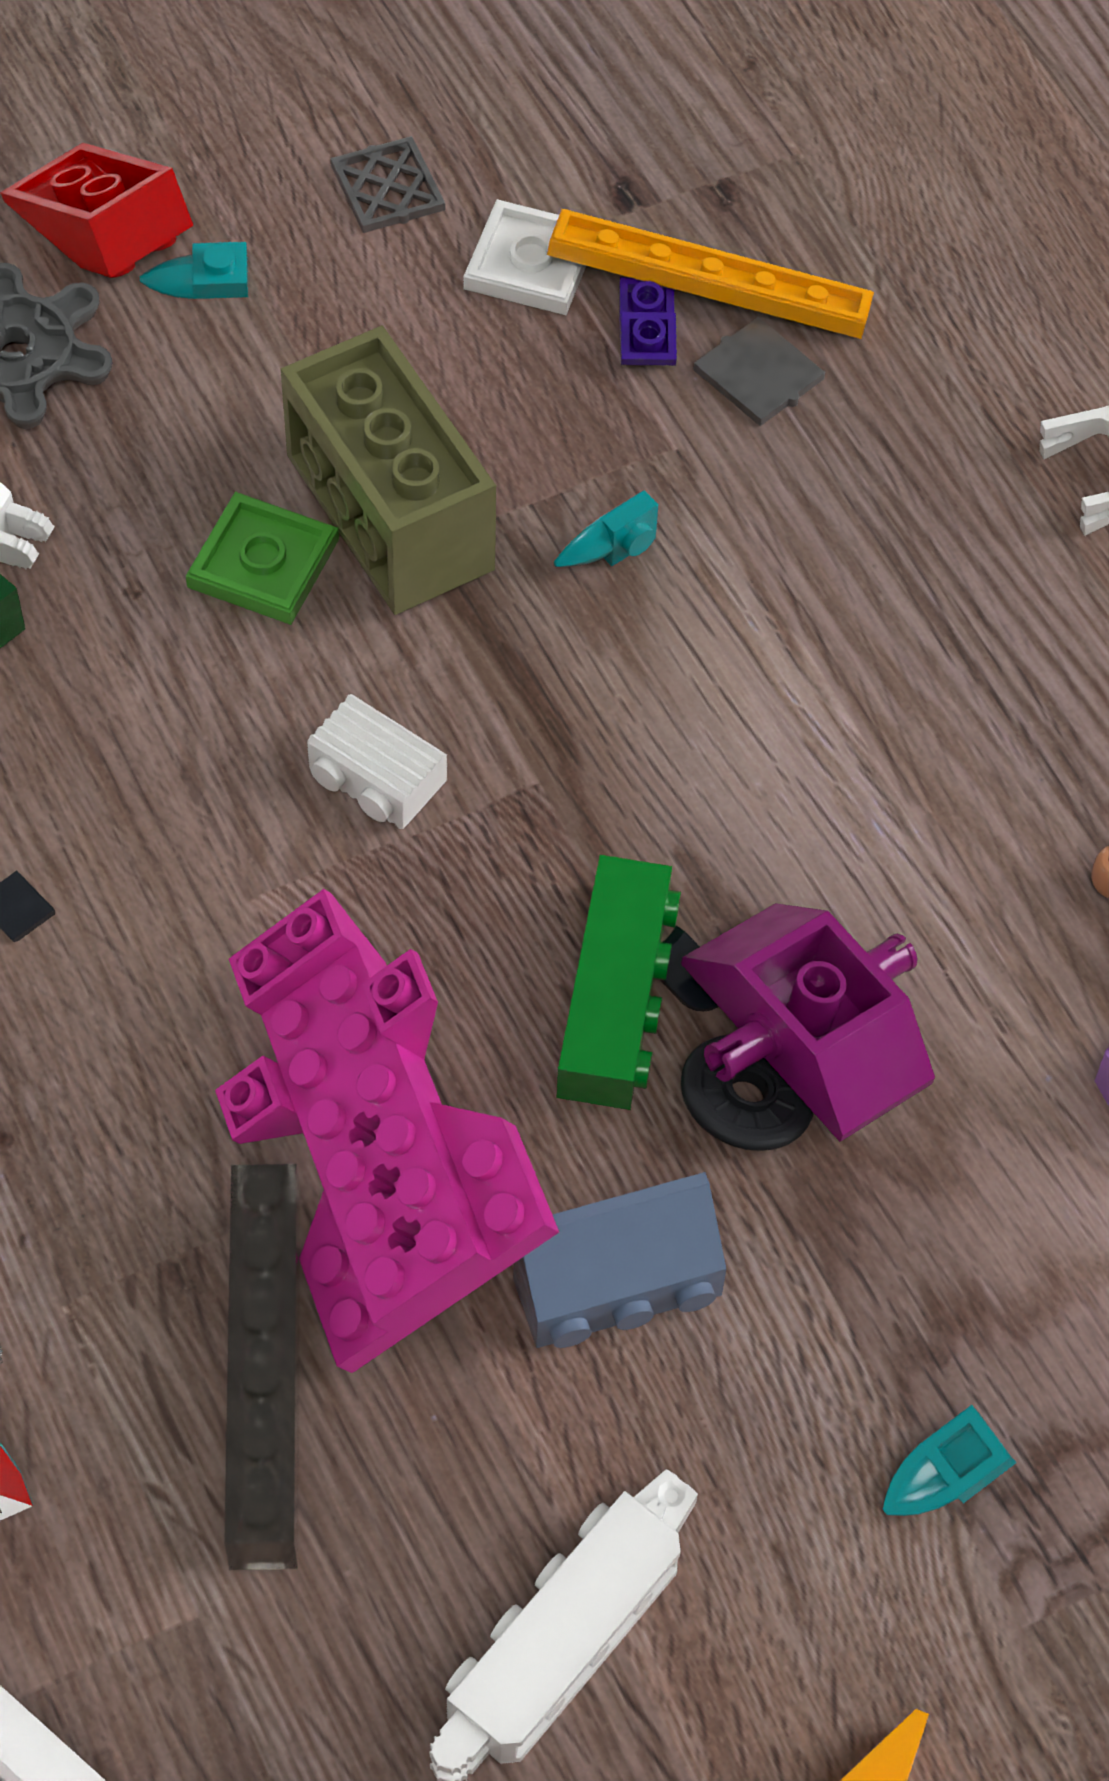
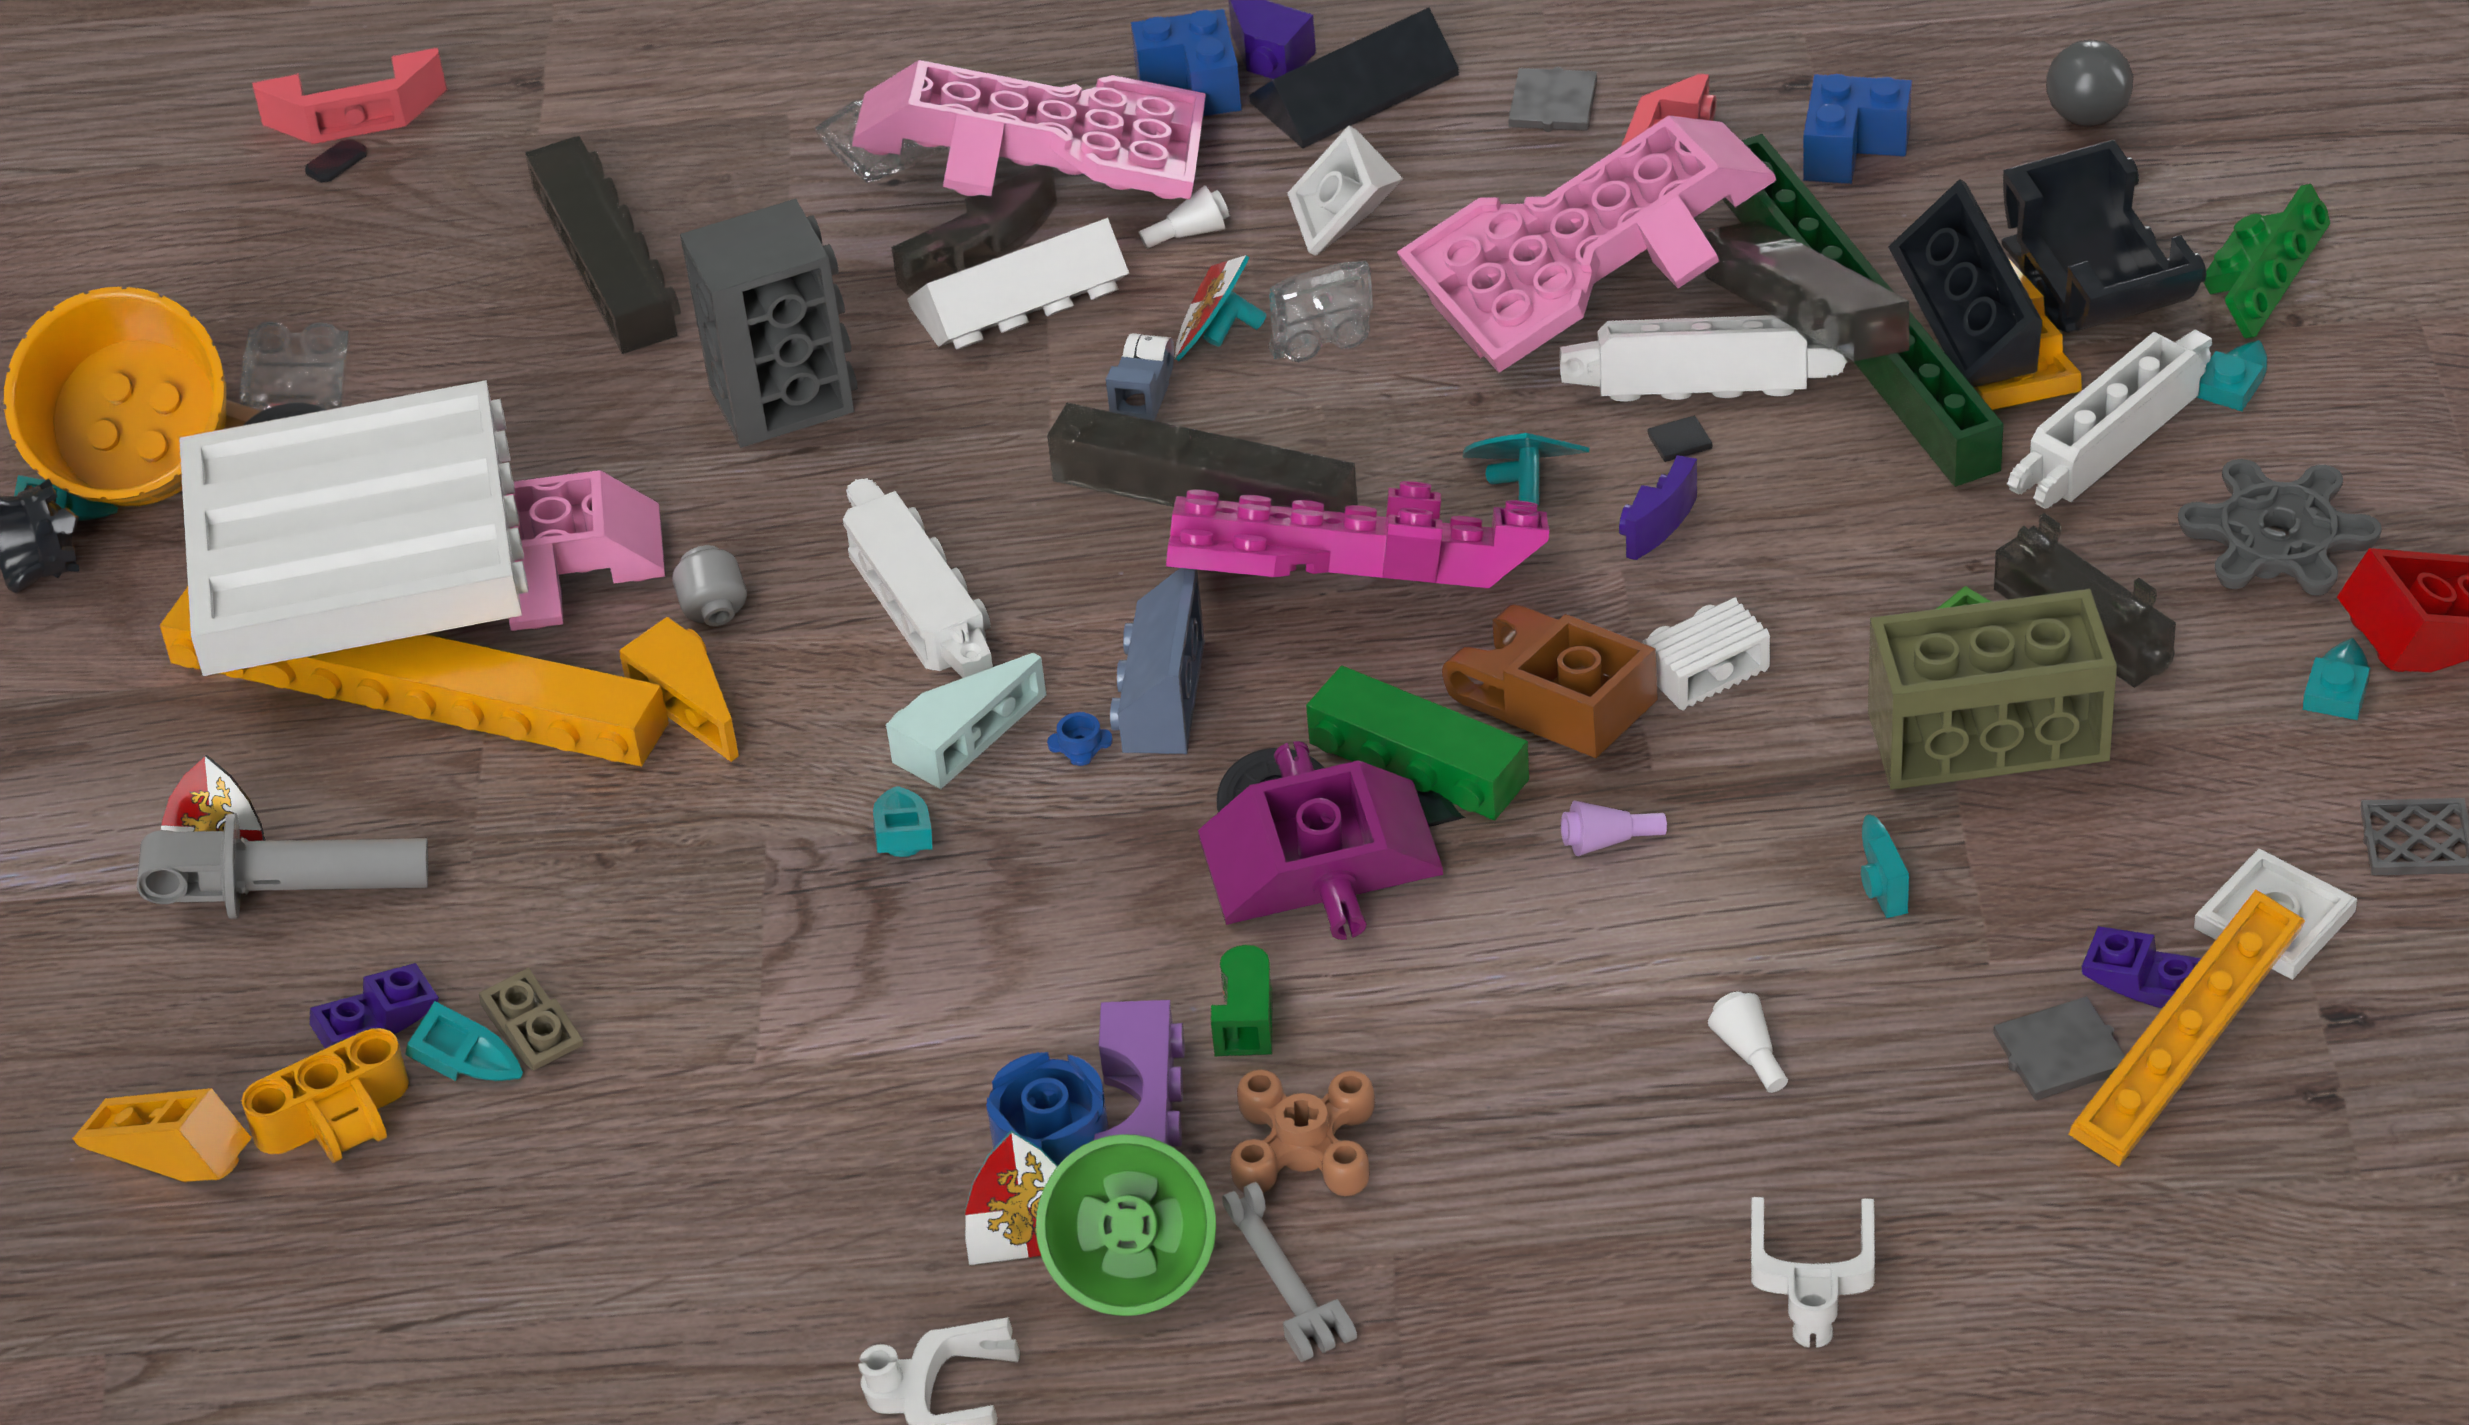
camera: 120 degrees right, 15 degrees down
(91, 1518) = (1144, 370): none -> sand blue leg
(122, 1026) = (1526, 470): none -> teal shield
(186, 873) = (1659, 509): none -> dark purple slope
(187, 466) = (2135, 630): none -> clear smoke brick
(481, 868) = (1557, 678): none -> dark orange brick
(663, 787) = (1595, 827): none -> lavender cone
(742, 1316) = (1079, 738): none -> blue plate
(782, 1468) = (961, 719): none -> light aqua slope
(864, 592) = (1742, 1026): none -> white cone
(1042, 1008) = (1246, 1020): none -> green leg

